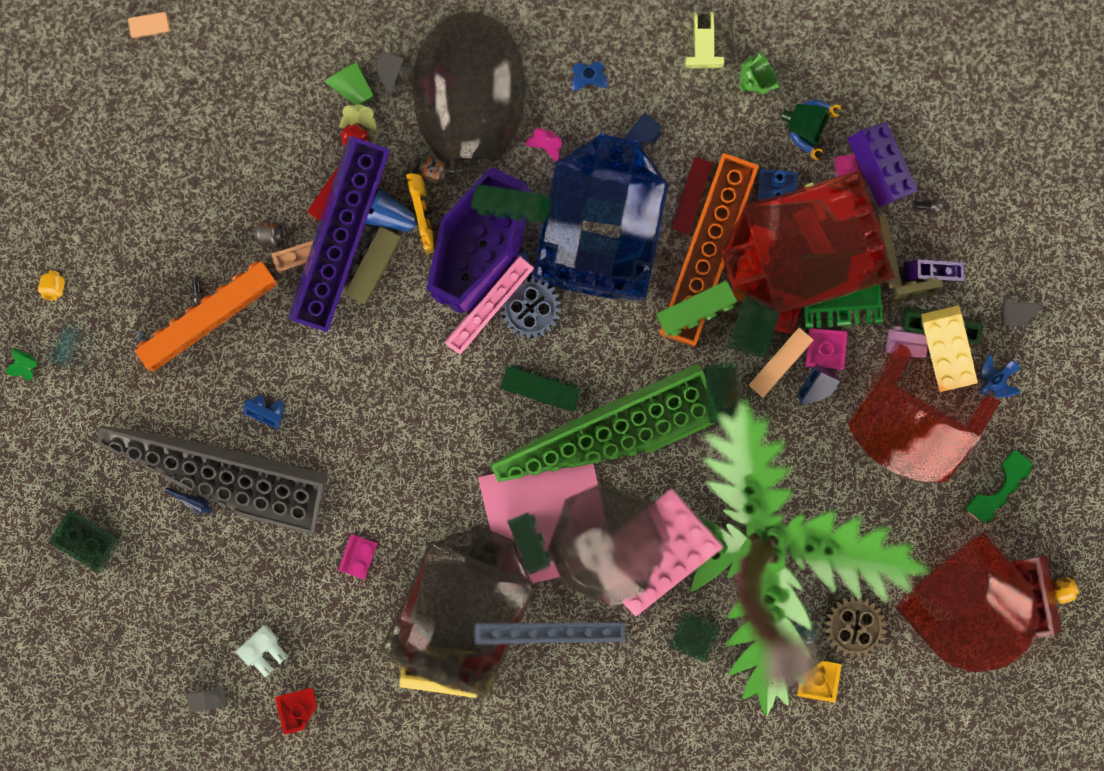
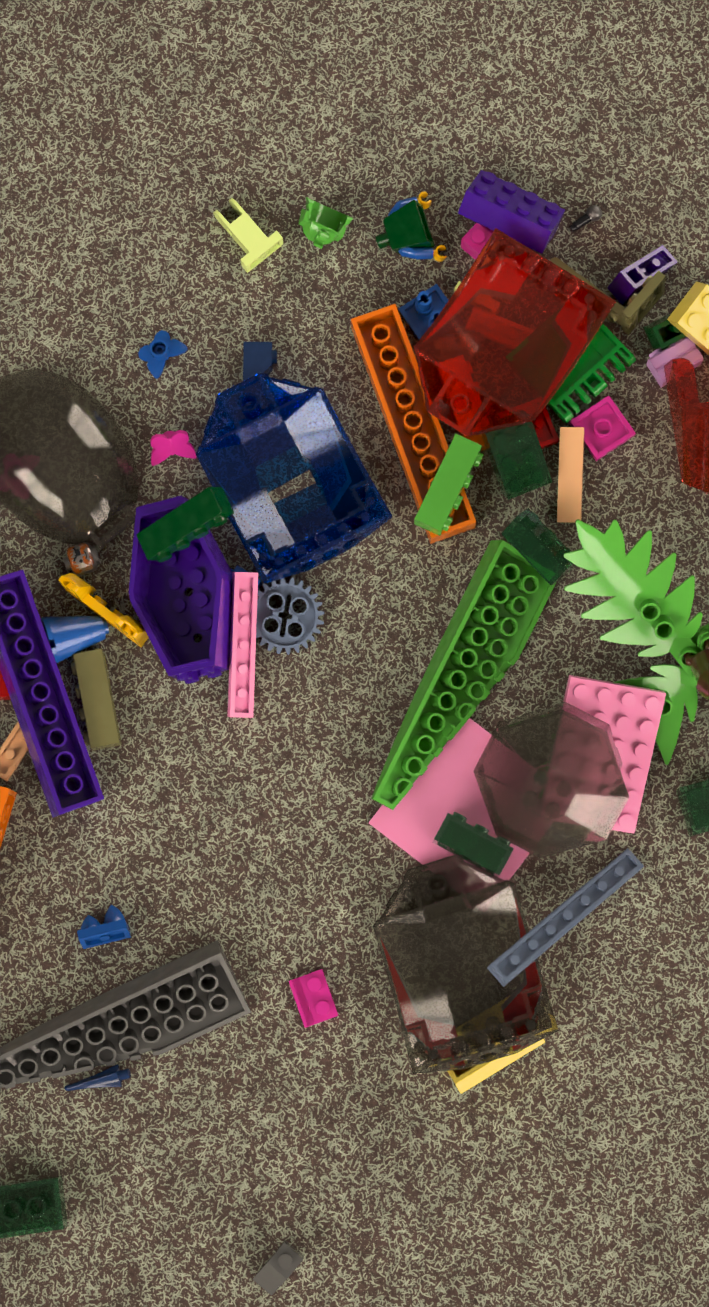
camera: 35 degrees left, 5 degrees down
(262, 641) = (284, 1177): light aqua brick -> none
(296, 709) = (375, 1203): red plate -> none
(539, 388) = (358, 687): dark green brick -> none
(691, 195) = (353, 386): dark red tile -> none
(818, 385) = (624, 468): dark blue slope -> none

